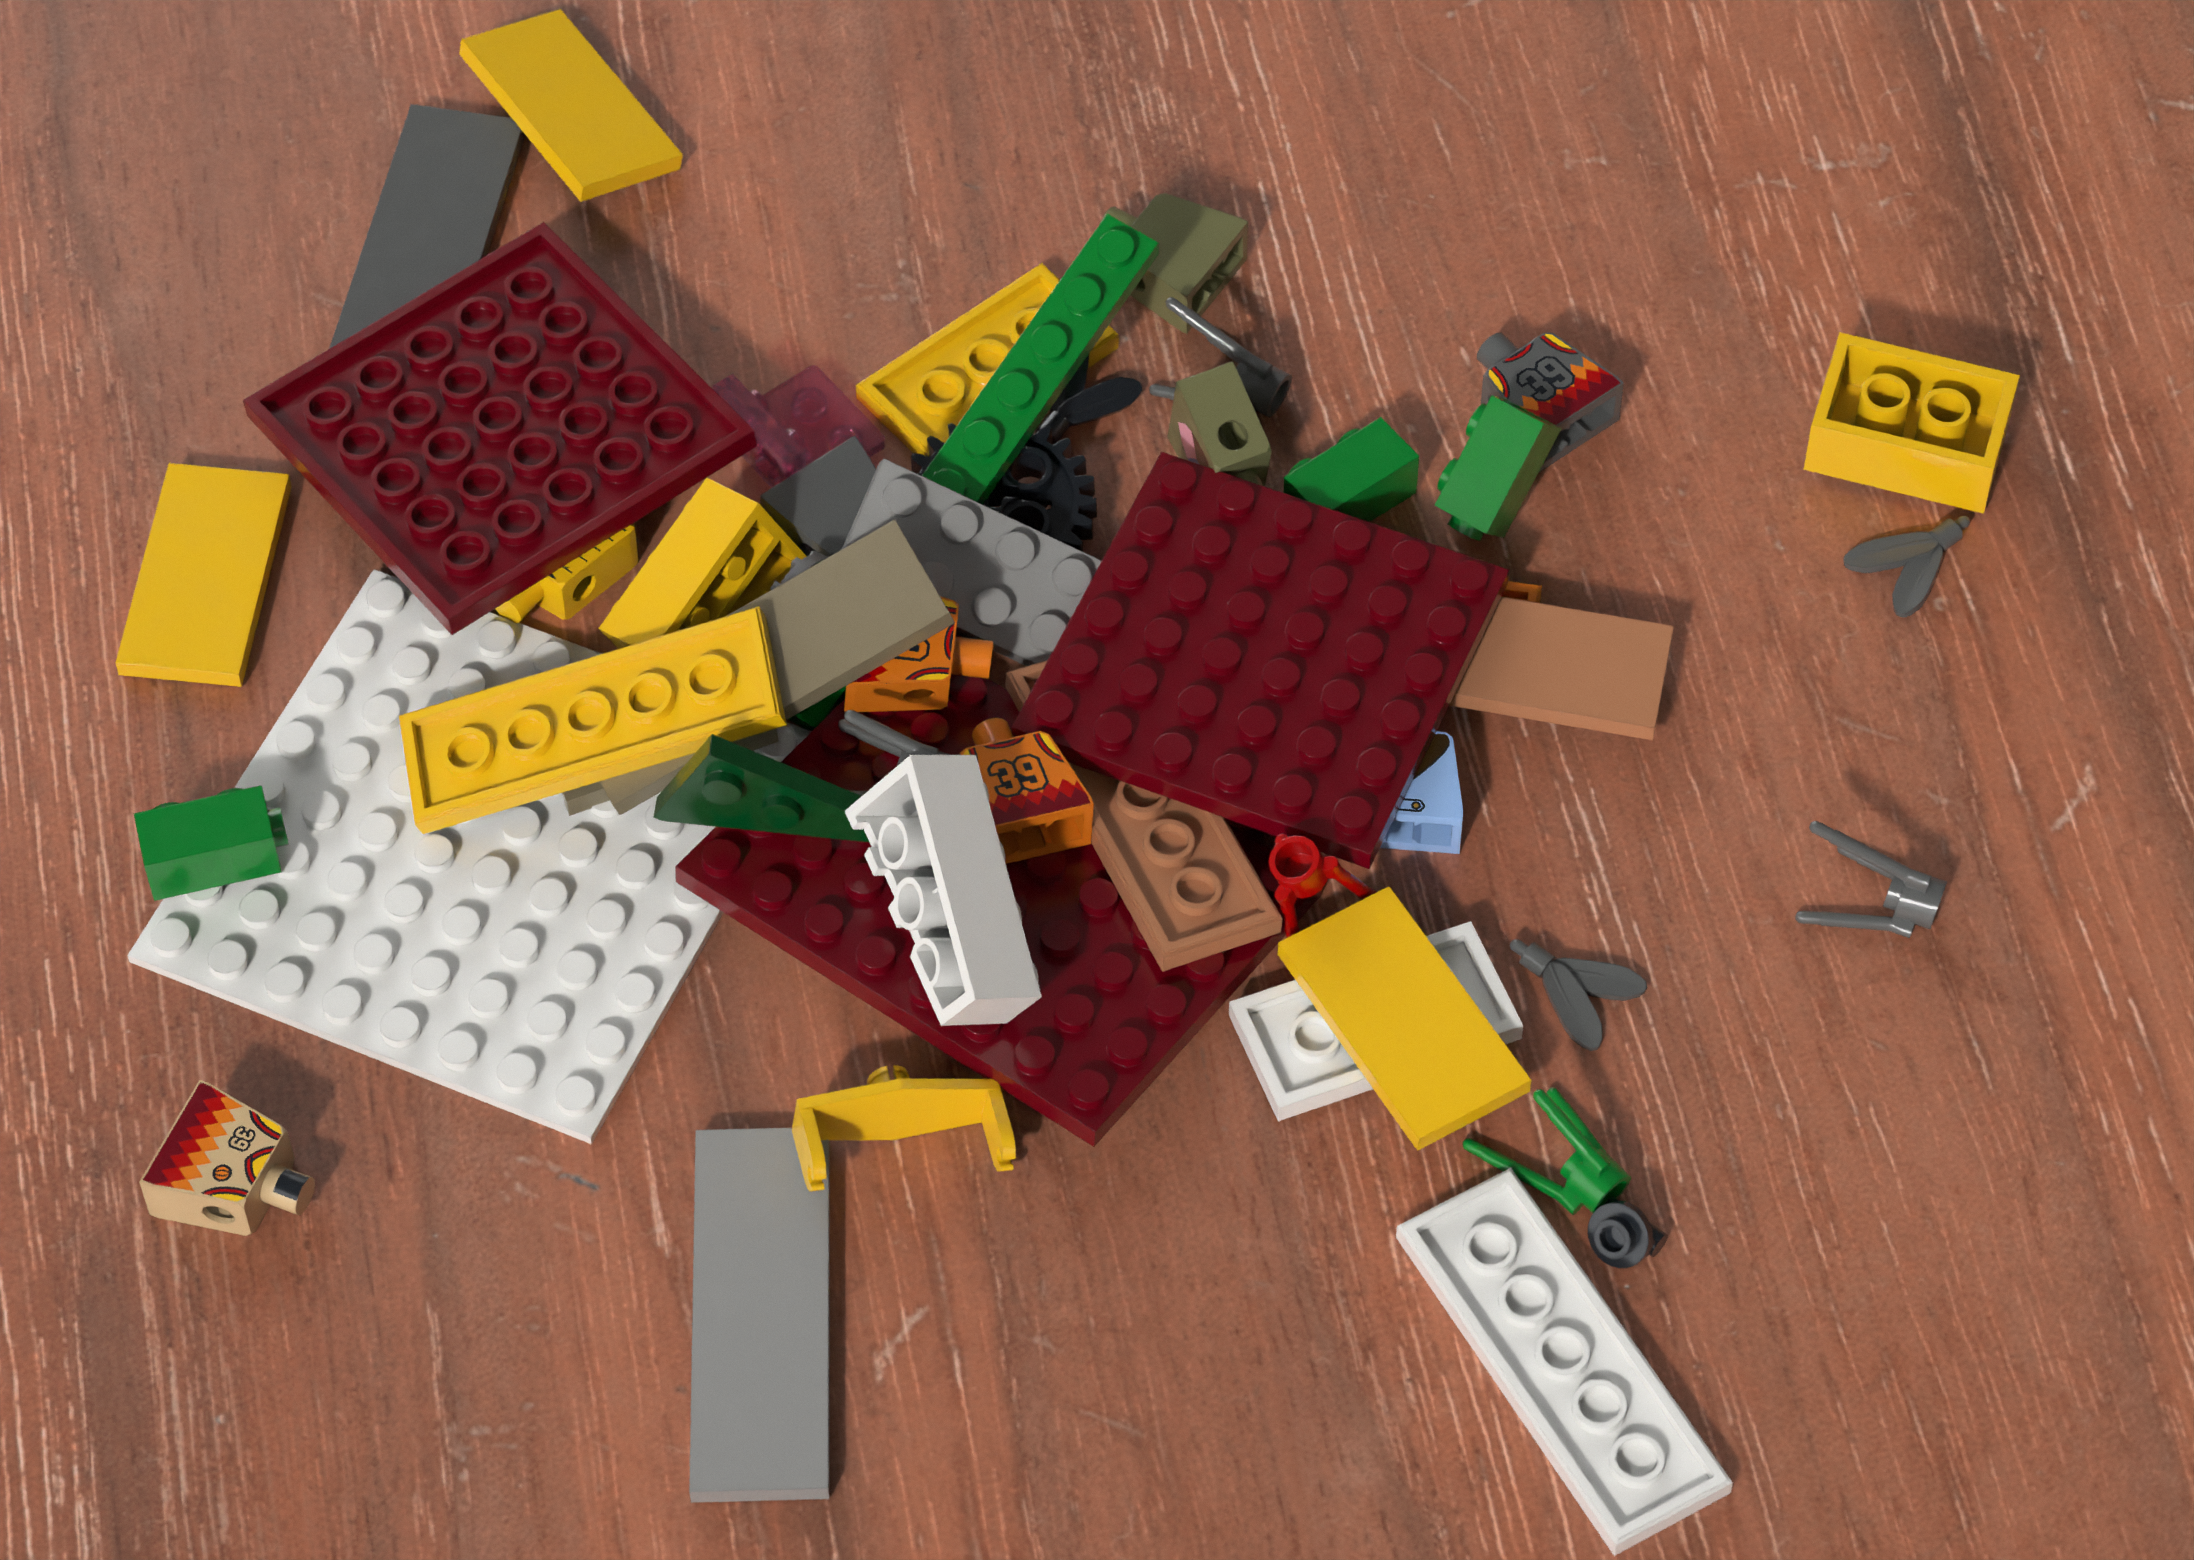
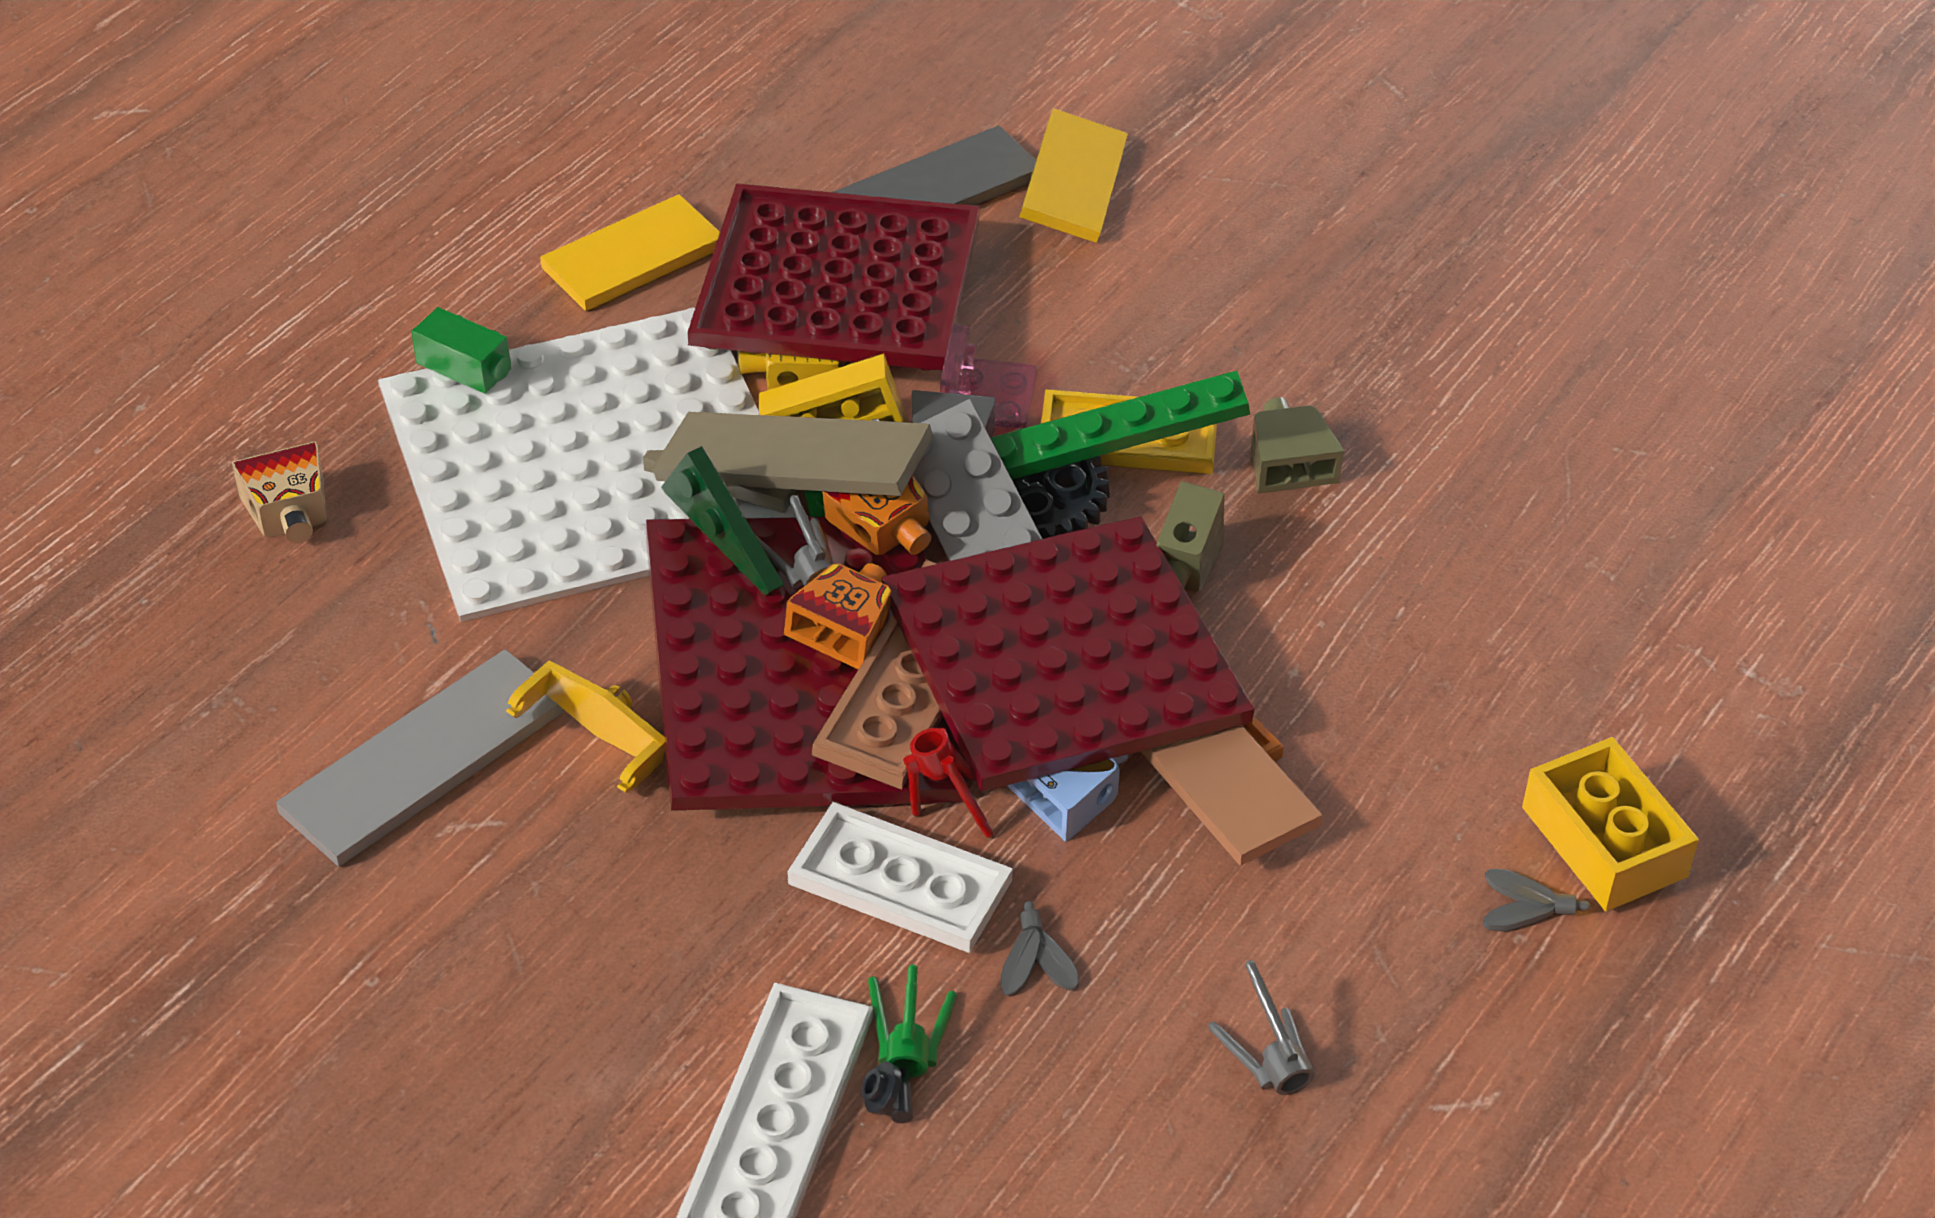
camera: 45 degrees right, 10 degrees down
(591, 720) = (680, 416): yellow tile -> none
(950, 887) = (733, 615): white wedge -> none
(1083, 406) = (1149, 473): black piece -> none
(1263, 381) = (1255, 536): dark grey plant -> none
(1360, 474) = (1243, 615): green brick -> none
(1404, 1018) = (905, 881): yellow tile -> none
(1494, 468) = (1322, 661): green brick -> none
(1554, 384) = (1408, 658): dark grey torso -> none

